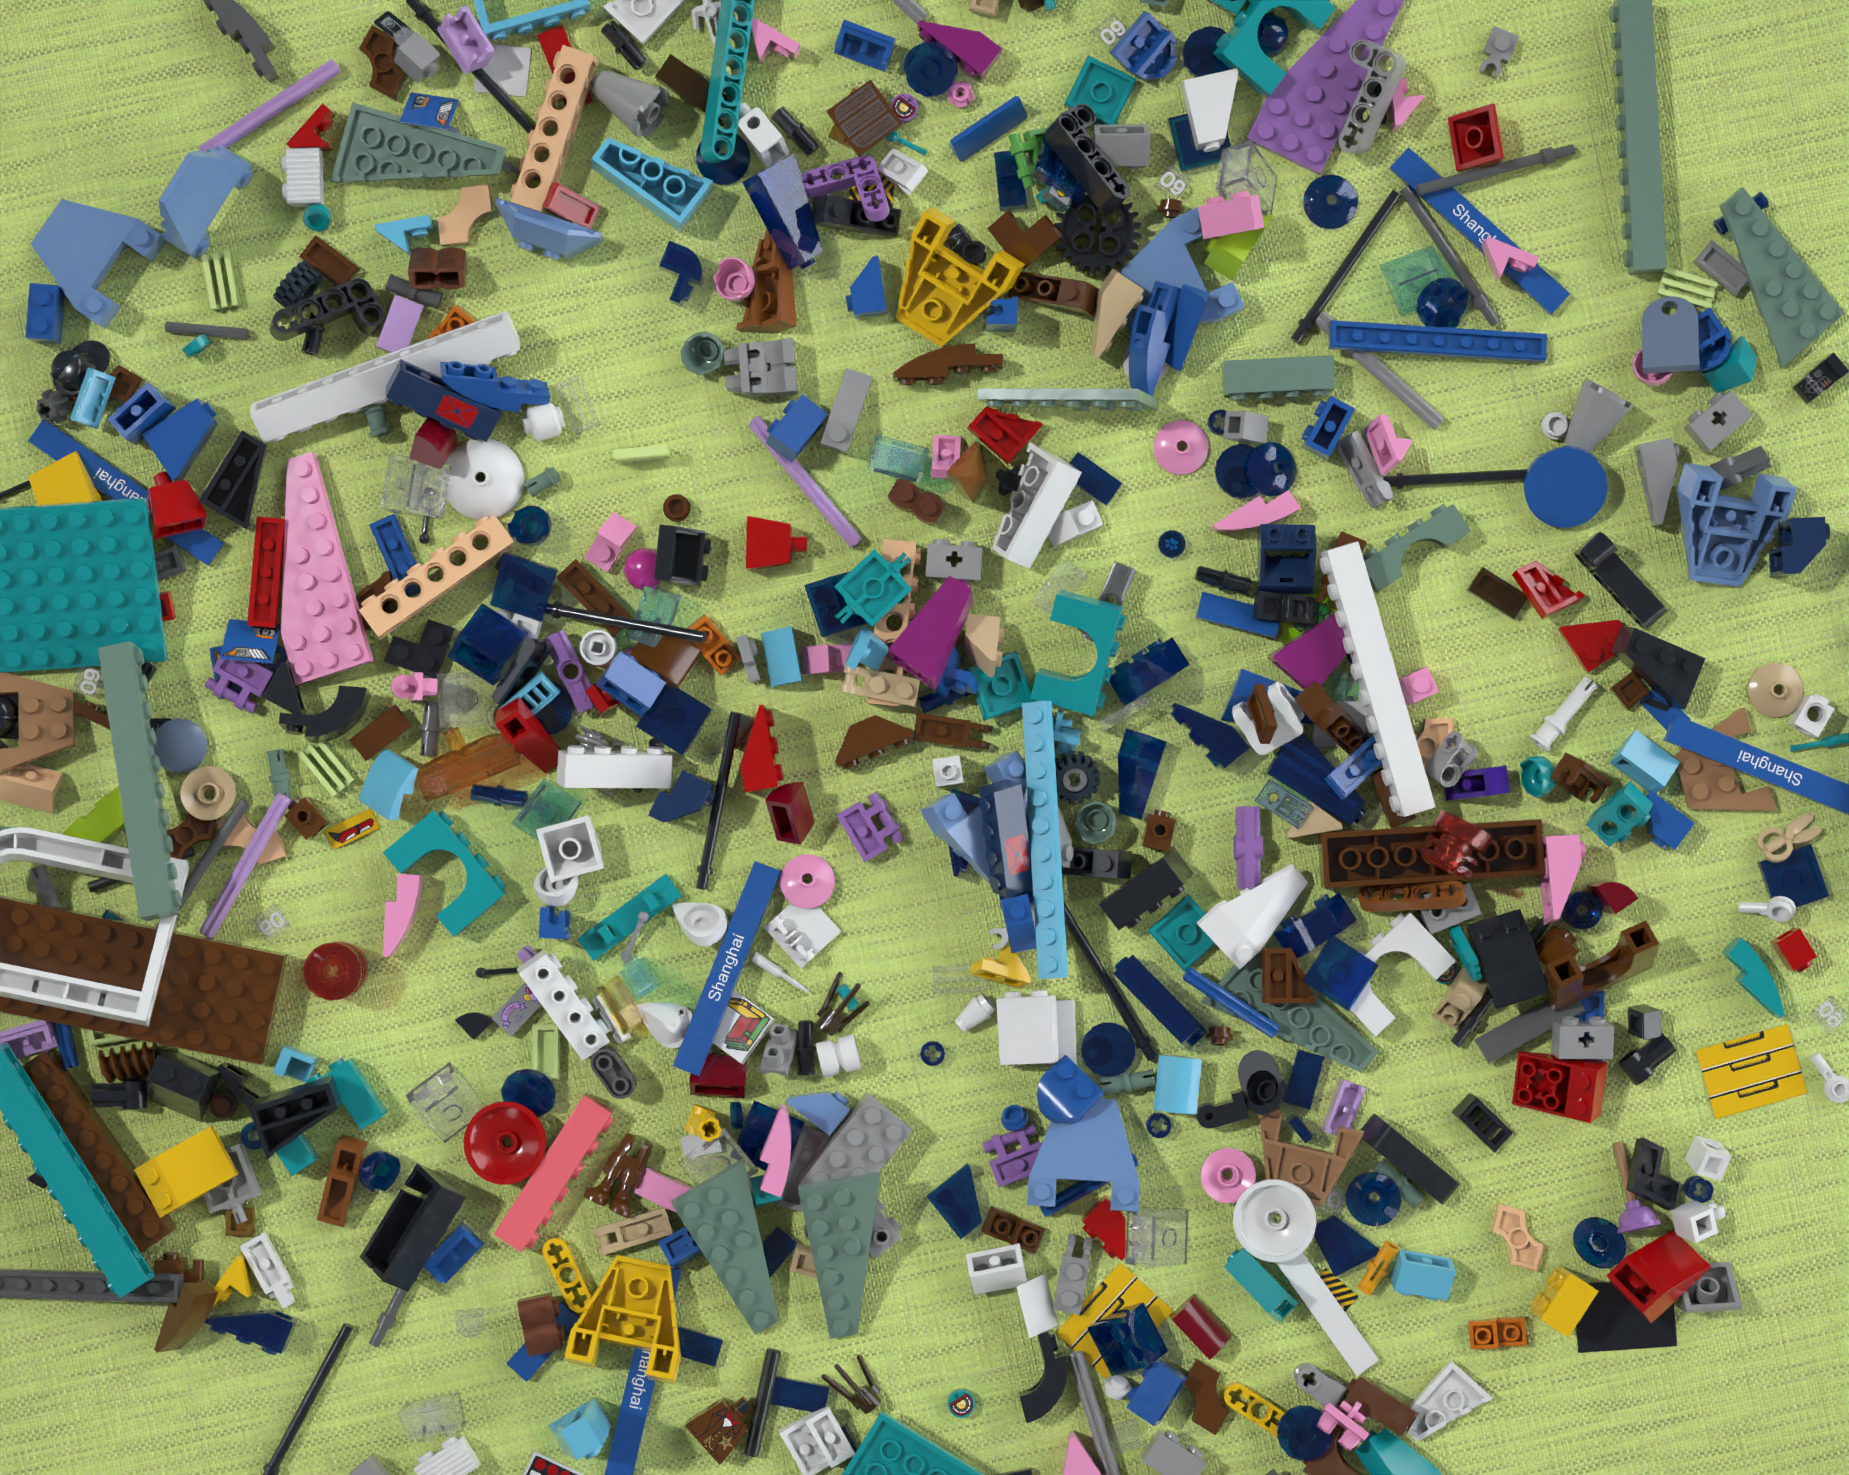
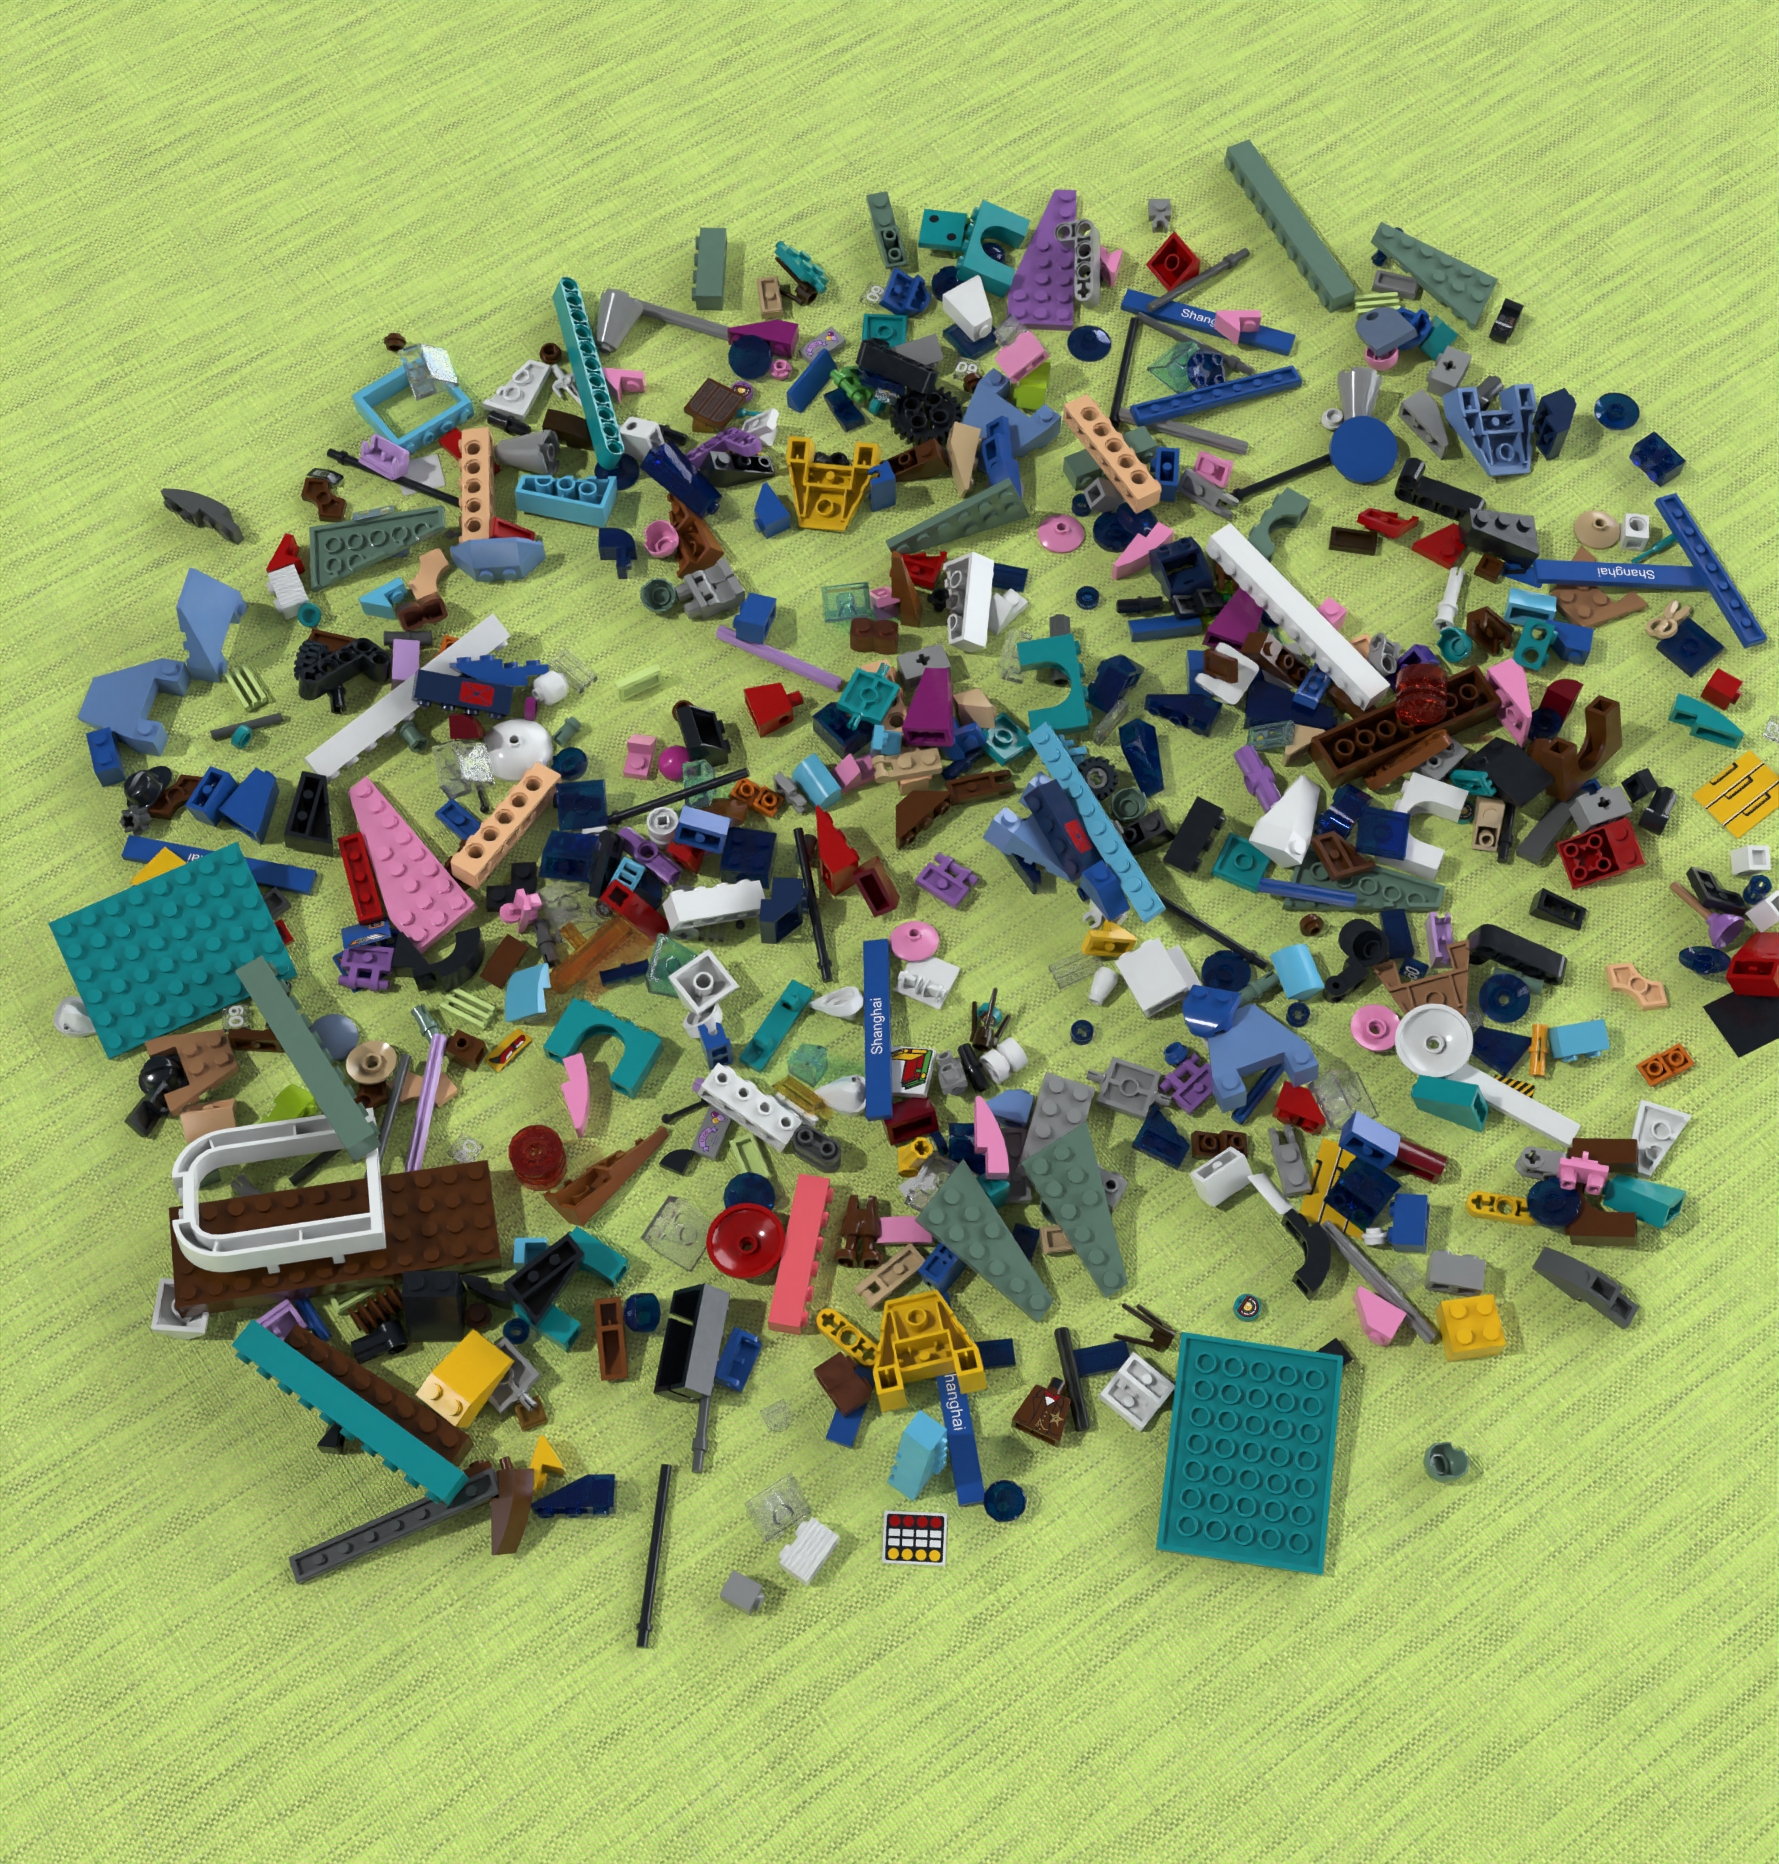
camera: 20 degrees left, 25 degrees down
(92, 398) = (167, 799): medium azure plate -> none
(173, 507) = (266, 853): red torso -> none
(269, 1269) = (573, 1442): white hinge -> none
(273, 106) = (255, 547): lavender axle -> none
(379, 1019) = (591, 1190): none -> dark orange wedge
(417, 58) = (350, 482): light grey brick -> none
(514, 438) = (530, 708): none -> magenta tile
(591, 593) = (635, 793): reddish brown plate -> none
(626, 954) = (788, 1015): light grey hinge -> none
(775, 970) = (920, 1020): white piece -> none
(846, 411) = (790, 601): light grey slope -> none
(864, 45) = (693, 362): blue hinge -> none
(935, 364) = (846, 539): reddish brown slope -> none
(947, 771) = (987, 809): white brick -> none
(950, 1134) = (1128, 1088): none -> light grey plate
(1021, 81) = (829, 339): none -> light grey tile
(1022, 243) = (881, 434): reddish brown tile -> none
(1156, 1298) = (1369, 1140): none -> blue brick
(1158, 830) = (1181, 794): reddish brown brick -> none
(1159, 1001) = (1251, 915): clear blue slope -> none
(1184, 324) = (1022, 443): blue slope -> none
(1208, 1411) = (1461, 1225): reddish brown tile -> none
(1277, 455) = (1112, 453): none -> light nougat brick
(1563, 1300) = (1703, 1010): yellow brick -> none
(1778, 908) = (1692, 664): white plate -> none

